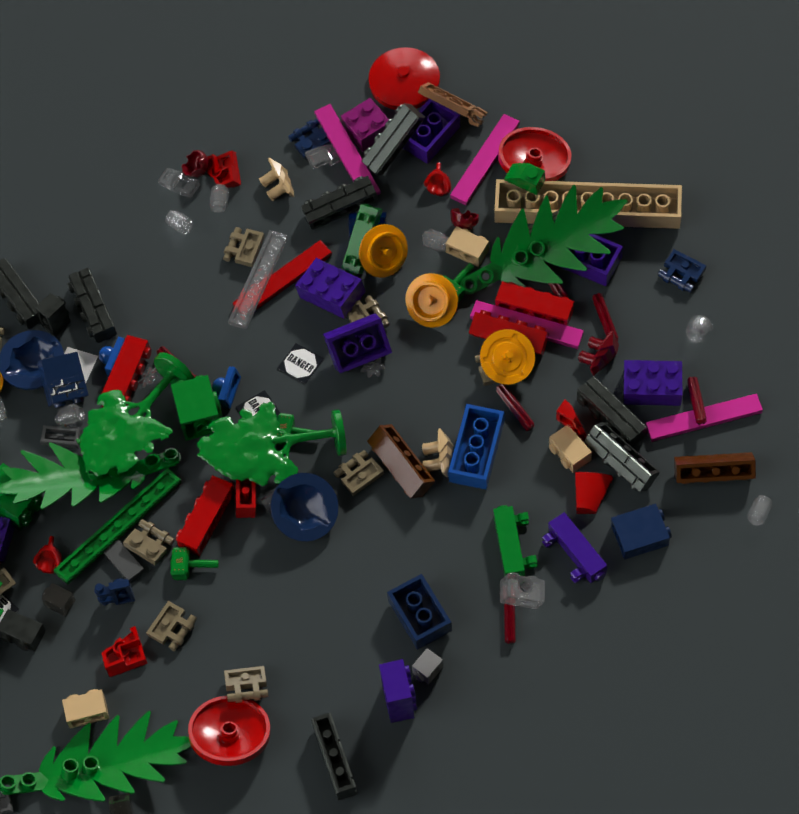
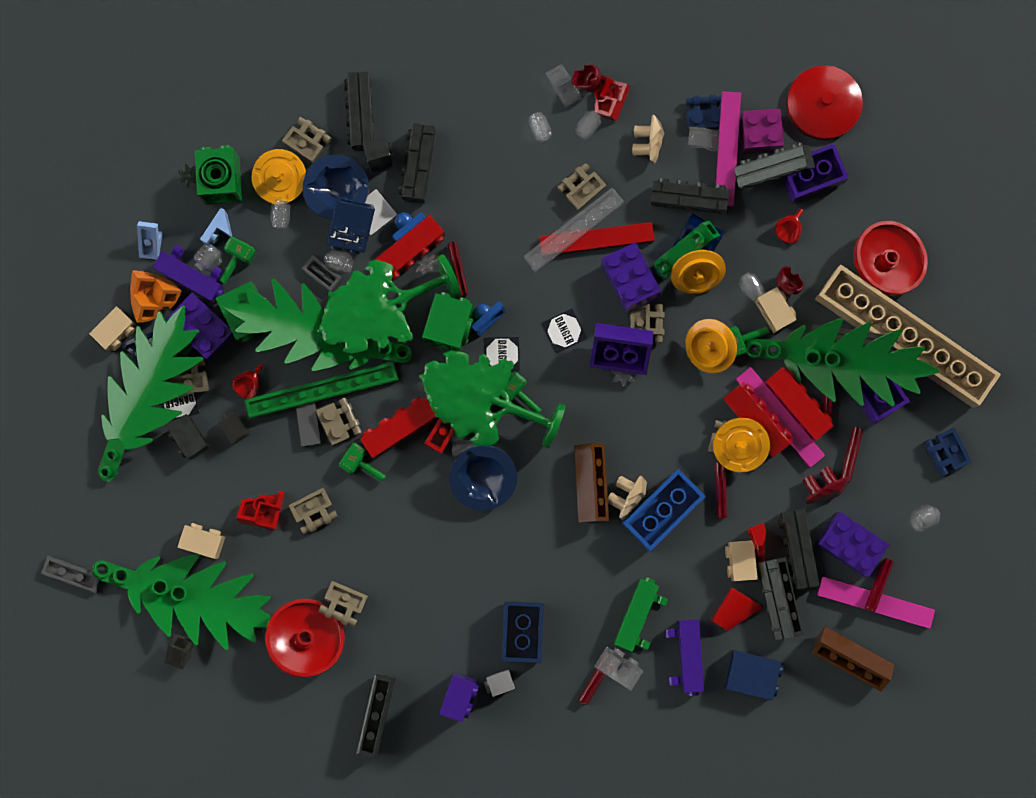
camera: 25 degrees right, 20 degrees up
(117, 591) = (285, 455): dark blue plate -> none
(360, 477) = (552, 473): dark tan plate -> none
(453, 103) = (851, 160): medium nougat tile -> none
(483, 160) = (845, 230): dark pink tile -> none
(526, 177) = (866, 281): green slope -> none
(759, 510) = (865, 719): clear brick -> none

